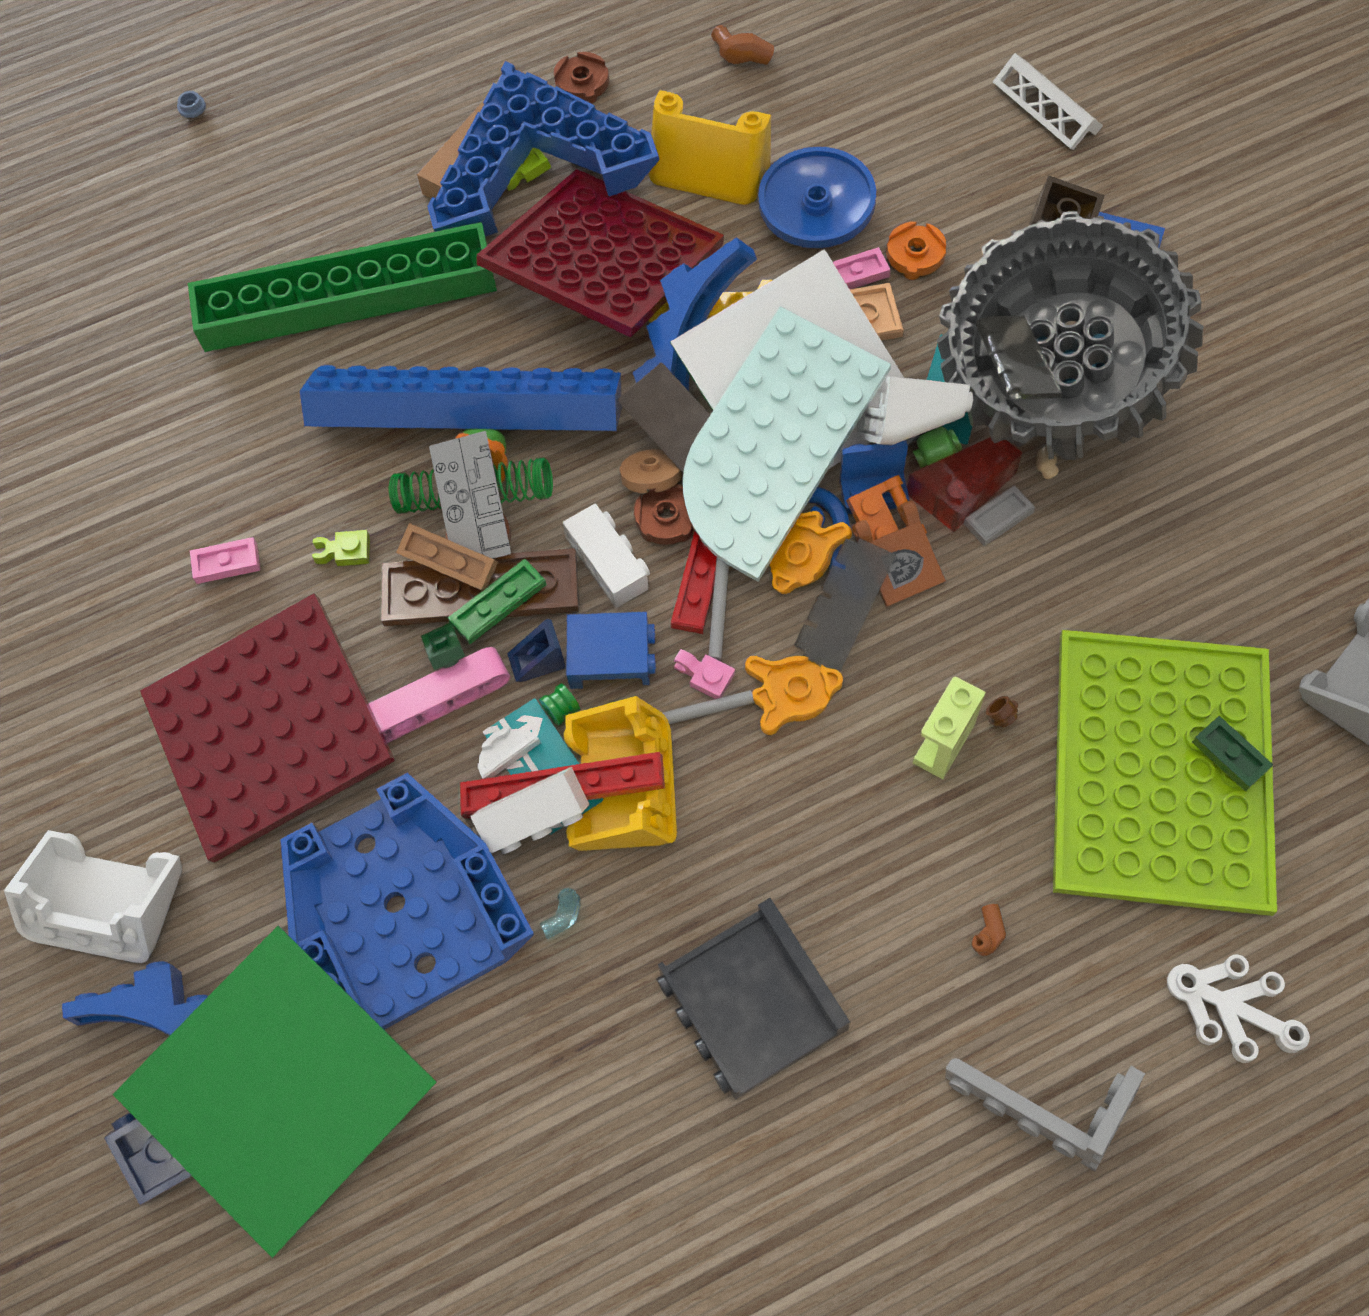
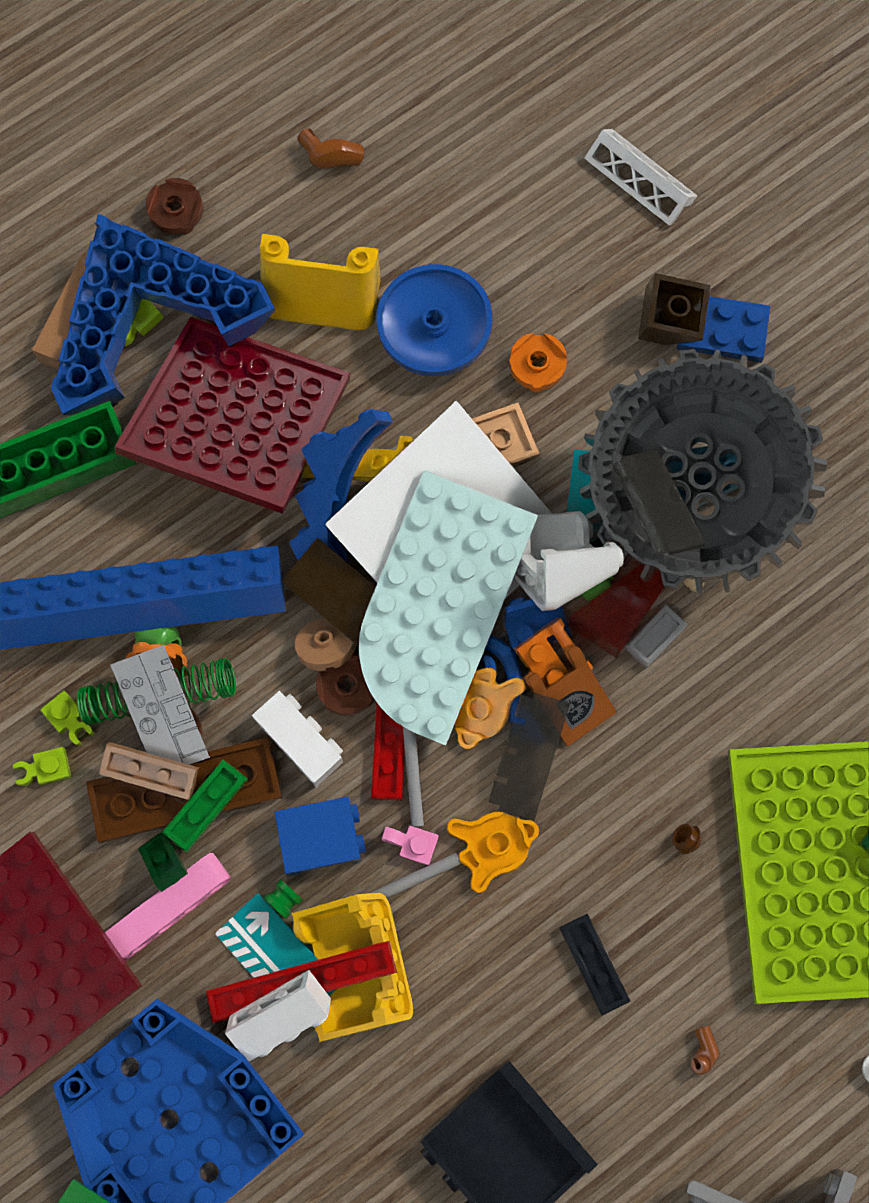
camera: 15 degrees left, 10 degrees up
(376, 505) = (64, 716): none -> lime plate
(504, 749) = (239, 951): white tile -> none
(537, 654) = (251, 851): dark blue slope -> none
(566, 914) = (327, 1102): clear light blue arm -> none
(863, 268) = (485, 393): bright pink plate -> none
(881, 824) = (594, 964): none -> black tile
(949, 727) = (643, 870): yellowish green panel -> none

